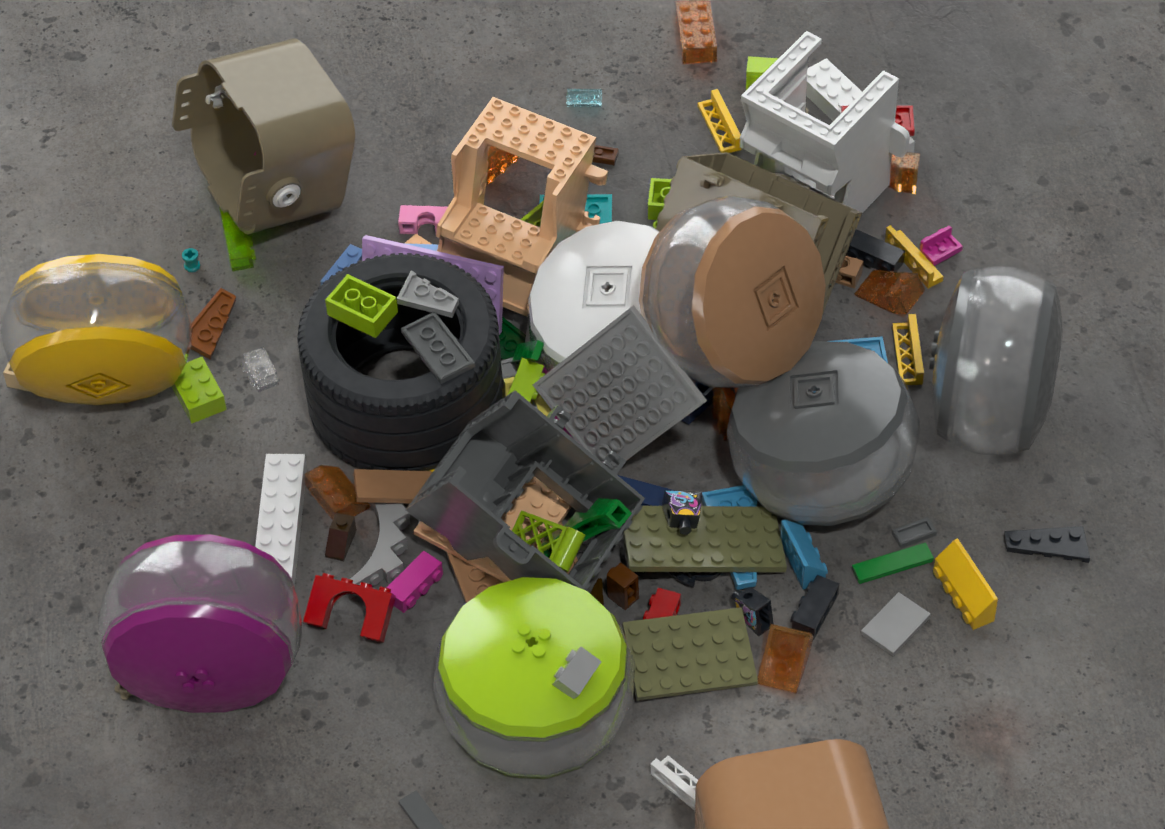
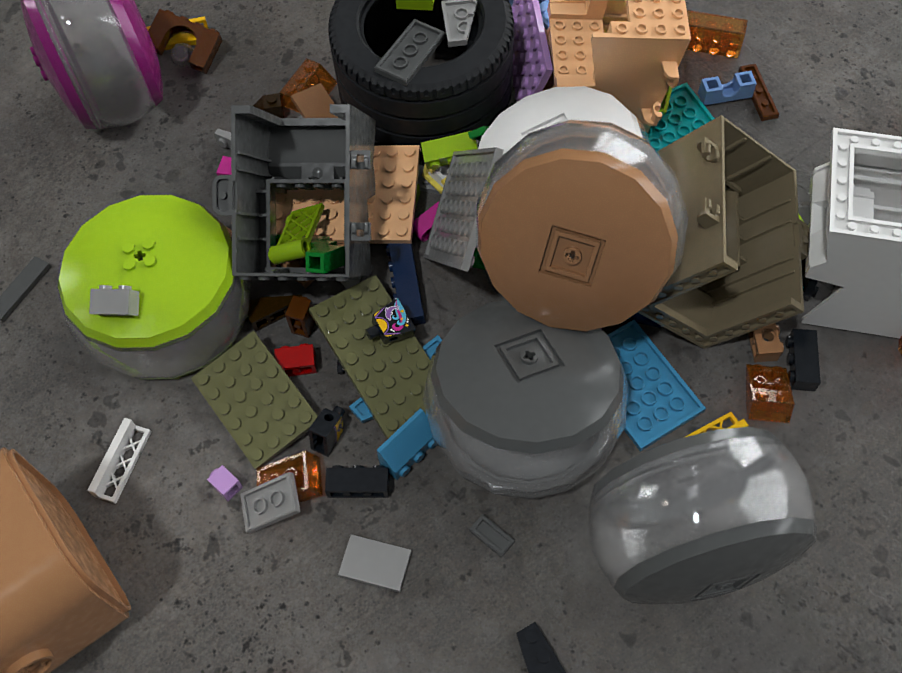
camera: 65 degrees right, 10 degrees up
(282, 508) = (257, 68): white brick -> none
(328, 590) = (205, 154): red arch -> none
(584, 97) = (816, 67): clear light blue plate -> none
(760, 708) = (224, 482): none -> lavender brick
(802, 676) = (270, 502): none -> light grey tile
(892, 563) = (445, 531): green tile -> none
(914, 258) = (824, 397): yellow fence -> none
(940, 246) = (853, 413): dark pink bracket -> none
(965, 585) = (441, 611): yellow slope -> none

